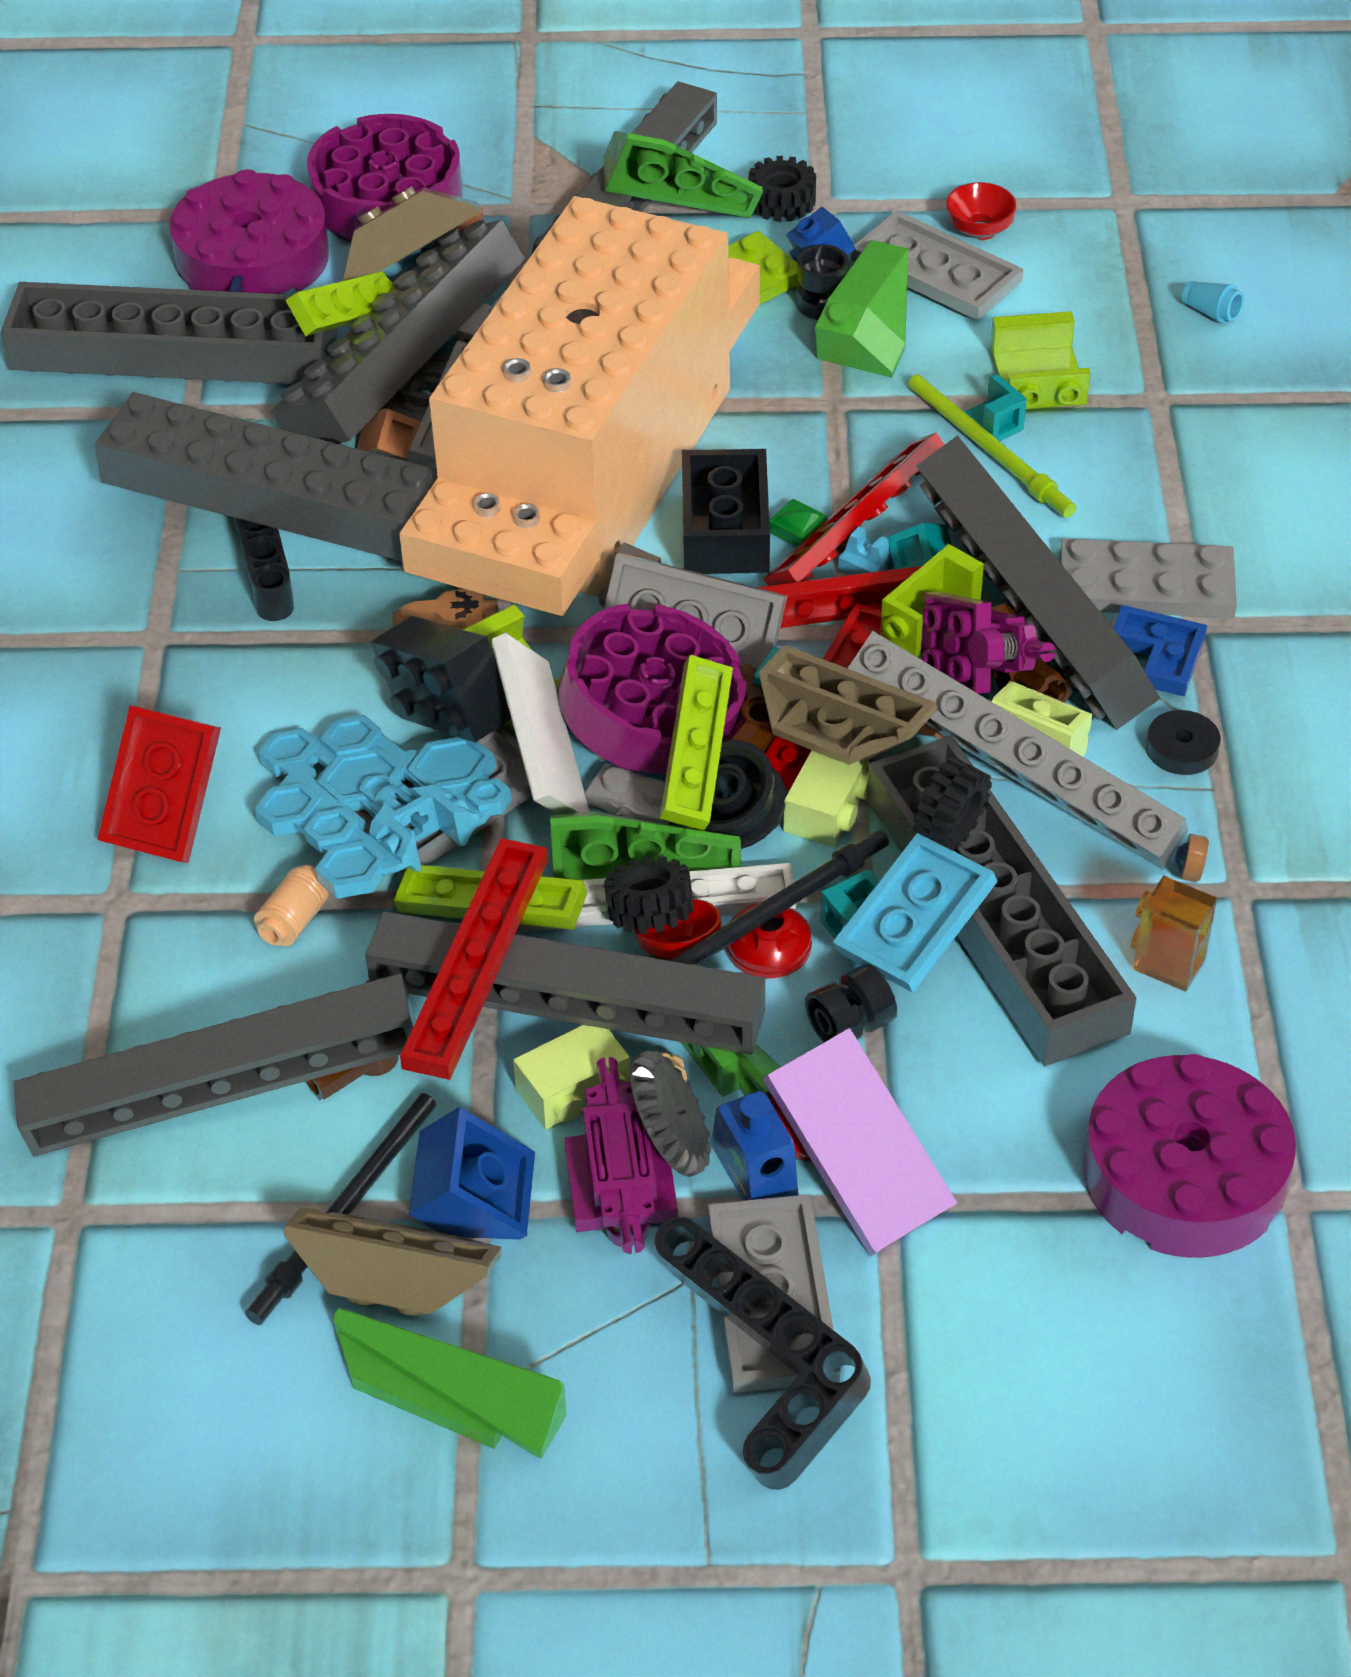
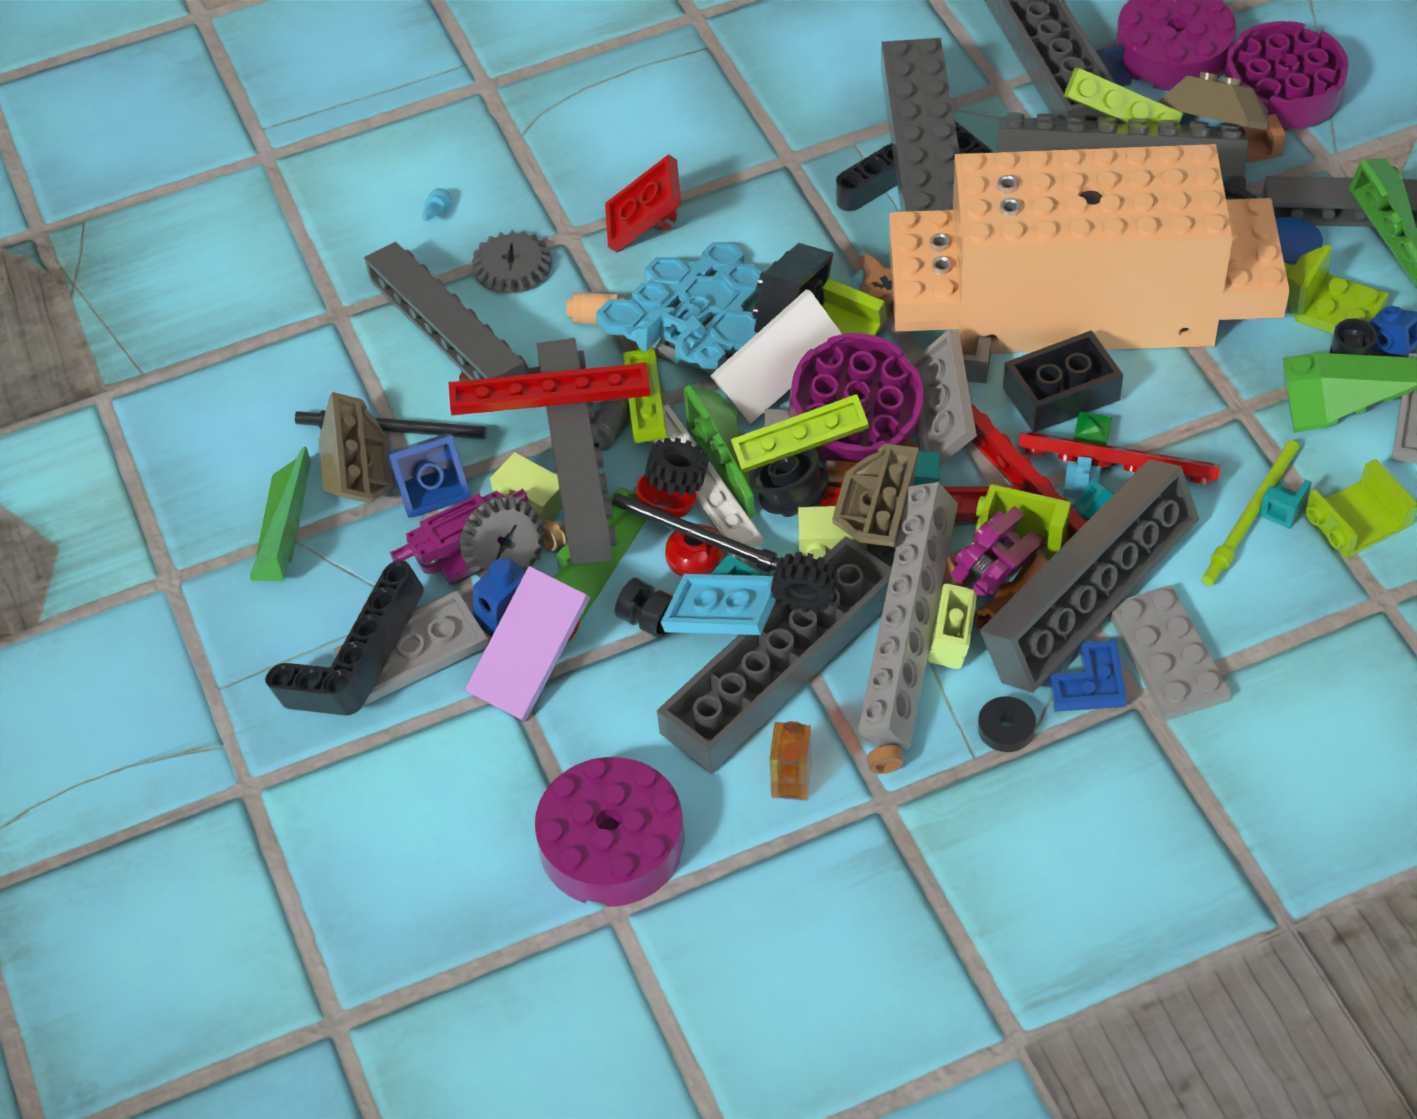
camera: 70 degrees right, 5 degrees up
(106, 999) = (529, 268): none -> dark grey gear

